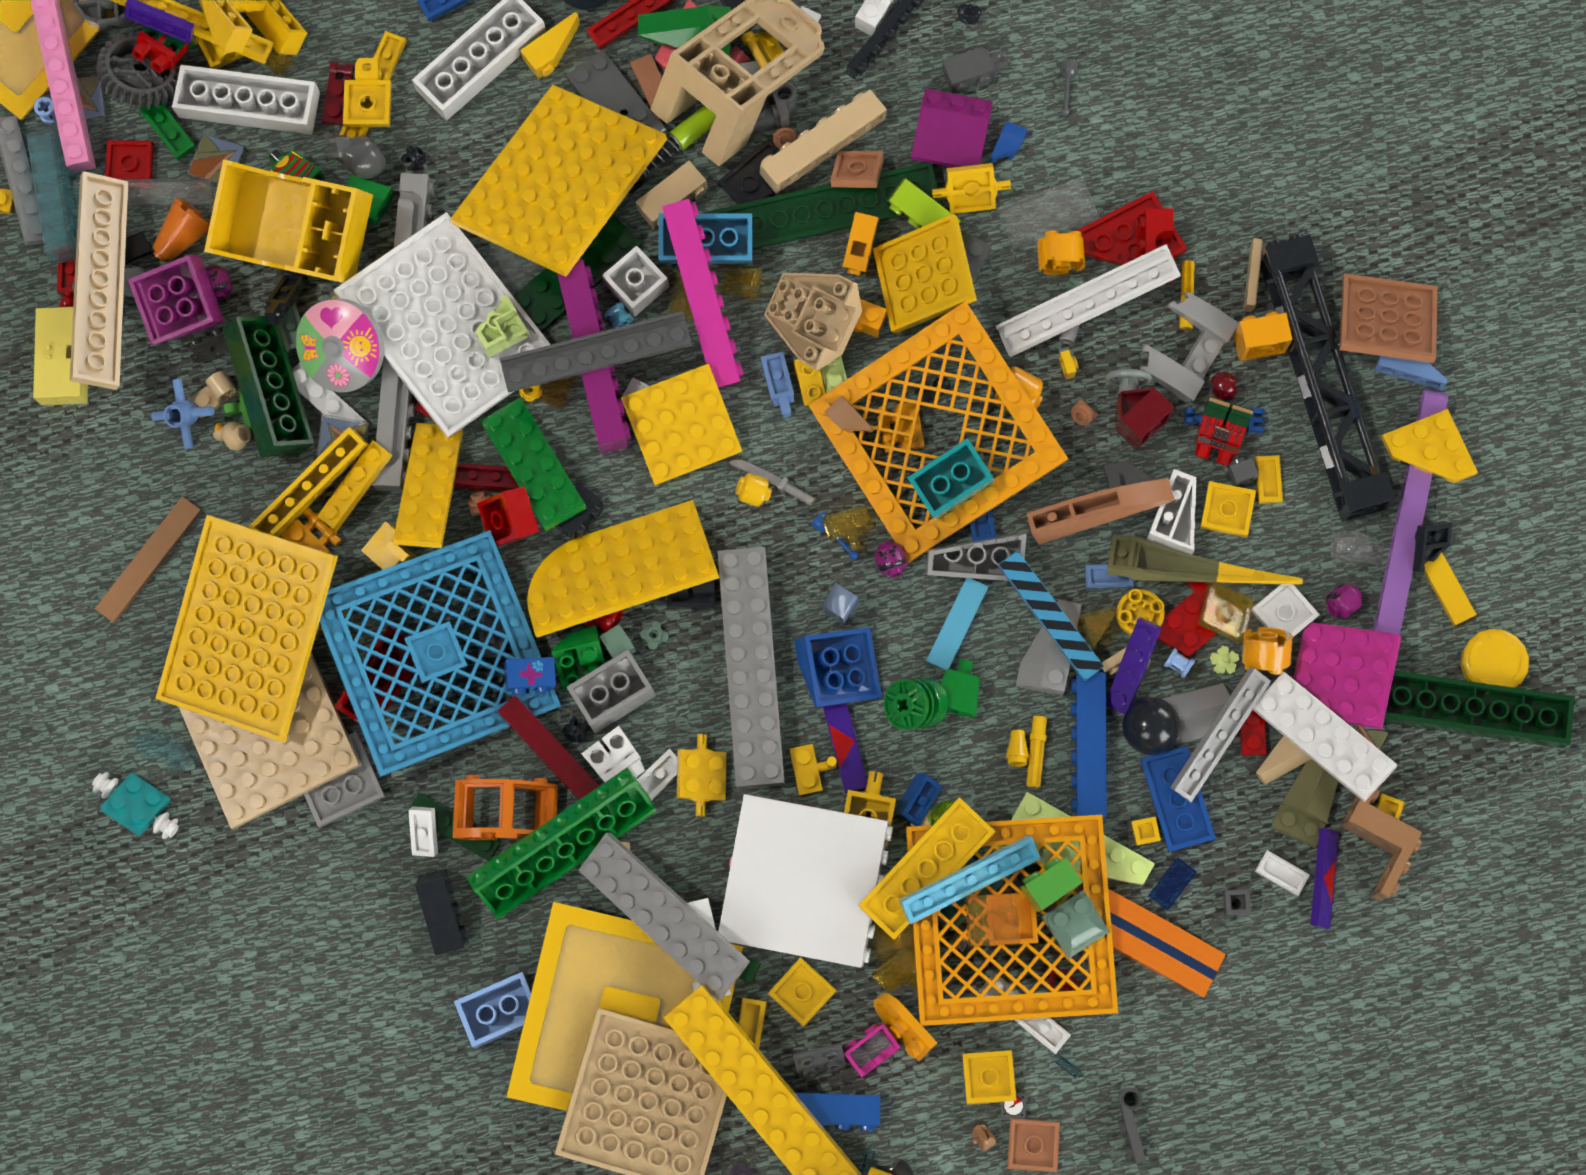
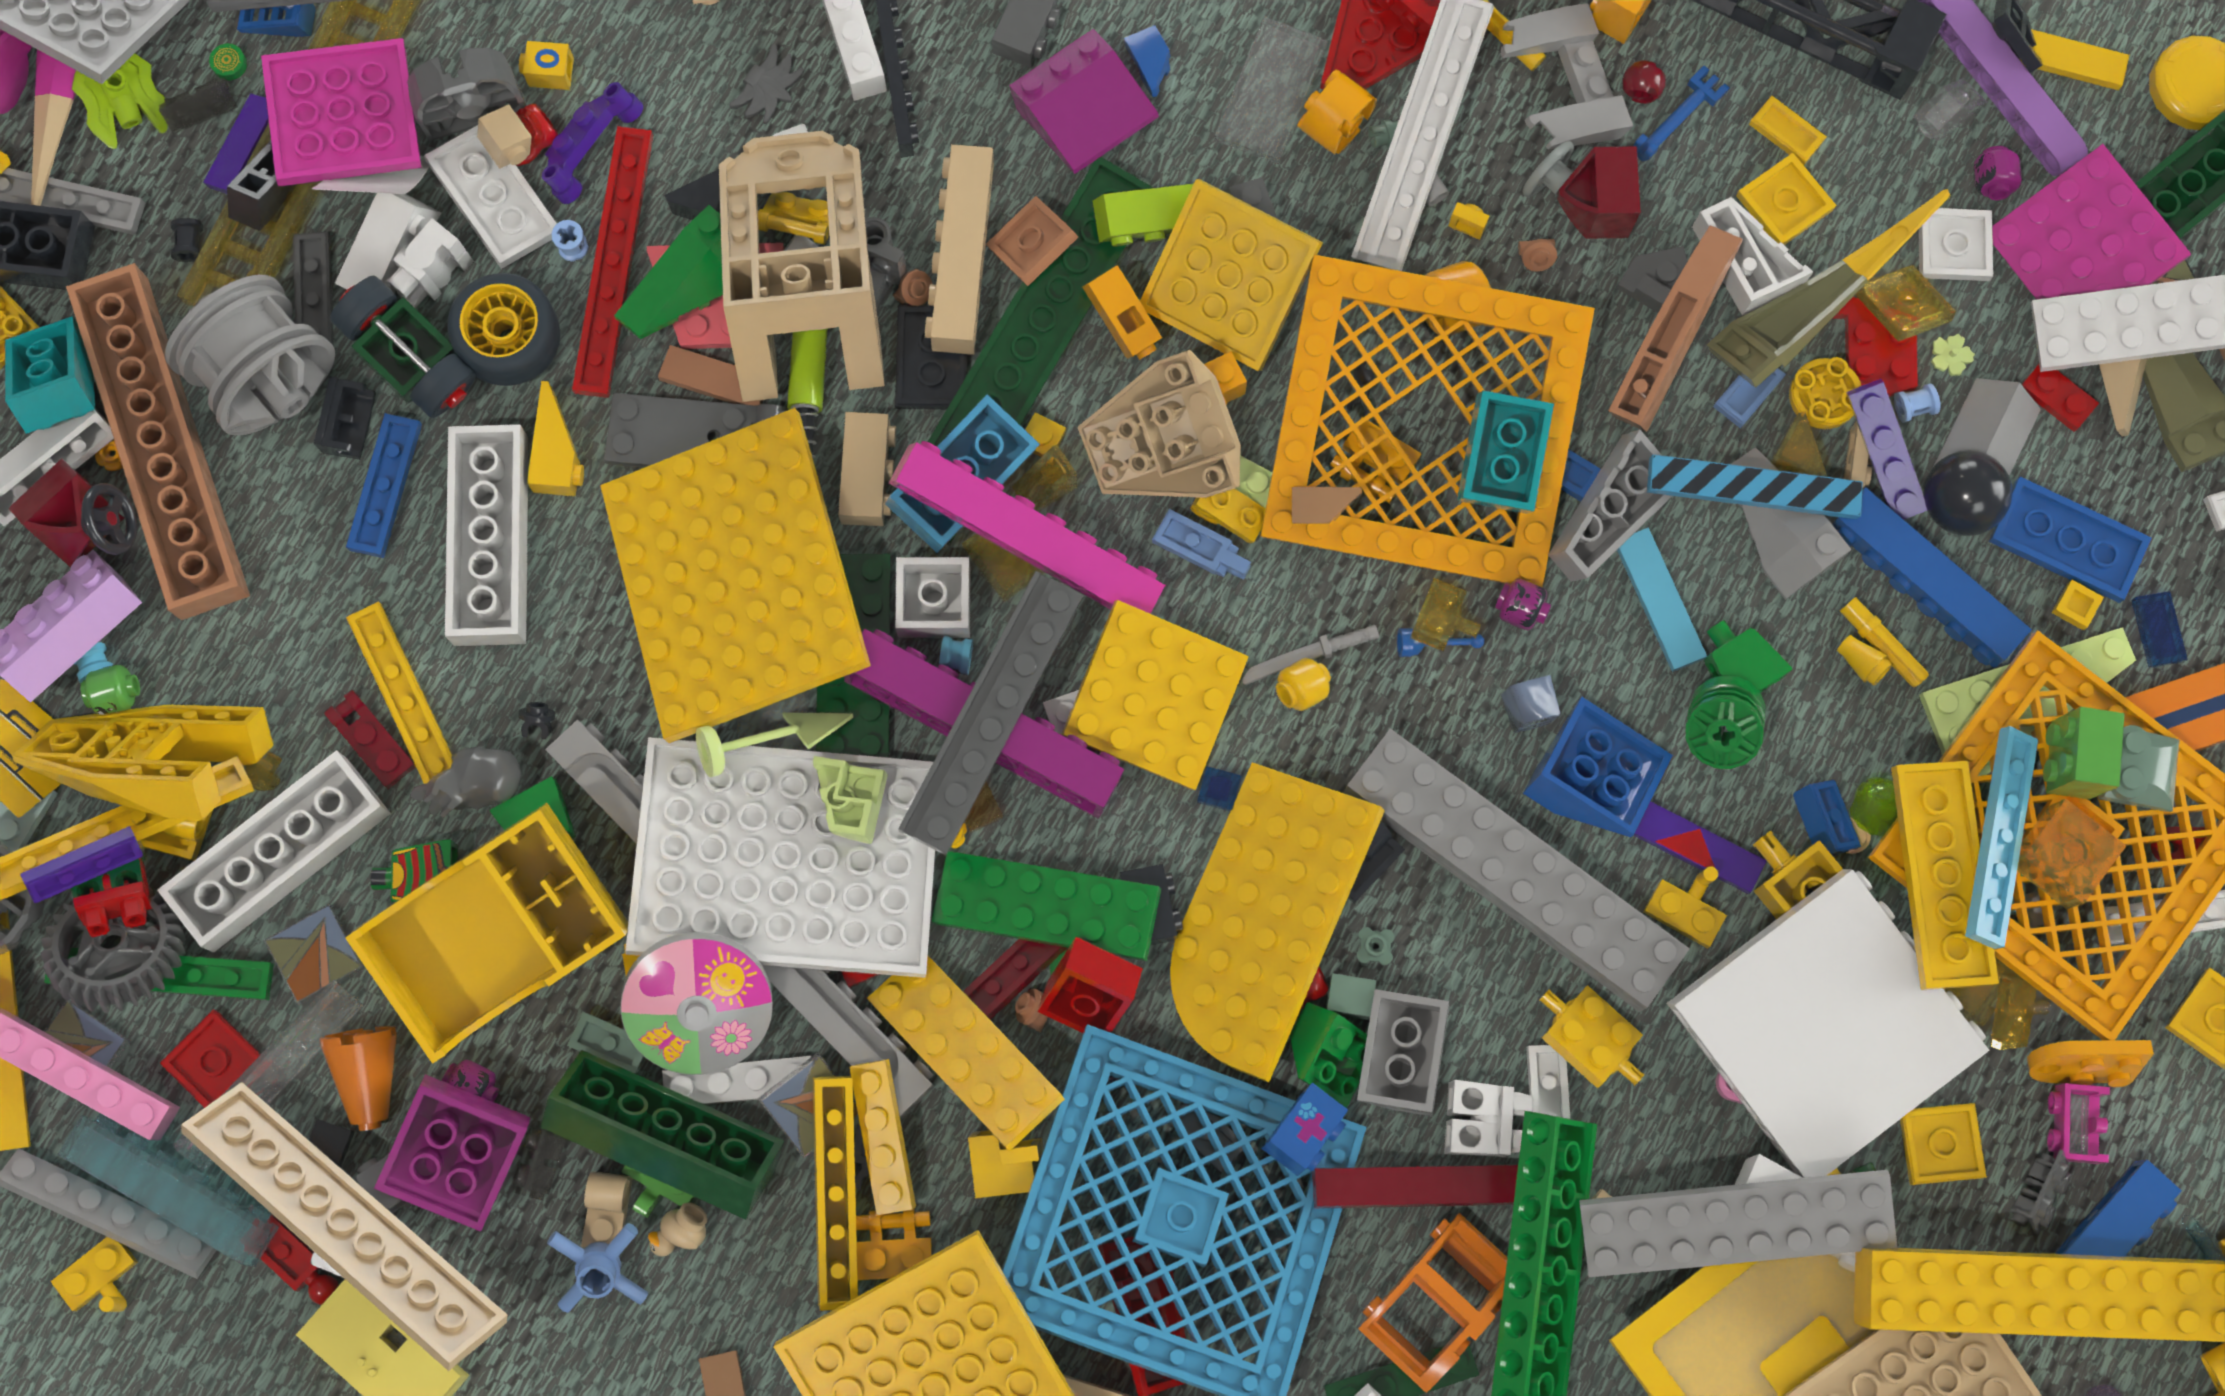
camera: 55 degrees left, 0 degrees up
(40, 110) = (53, 1113): light blue bush -> none
(283, 297) = (568, 1020): black hinge -> none
(367, 86) = (397, 698): yellow plate -> none
(518, 278) = (808, 727): none -> yellowish green piece
(575, 733) = (1412, 1140): black plate -> none
(666, 495) = (1219, 789): none -> clear blue plate
(752, 1018) = (1926, 1227): yellow tile -> none
(766, 261) = (1045, 432): none -> yellow plate
(971, 188) = (1171, 140): yellow plate -> none
(1220, 734) = (2047, 427): light grey plate -> none
(1221, 437) = (1691, 124): hips -> none
(1242, 471) = (1758, 148): dark grey plate -> none
(1267, 649) = (1991, 296): light orange brick -> none

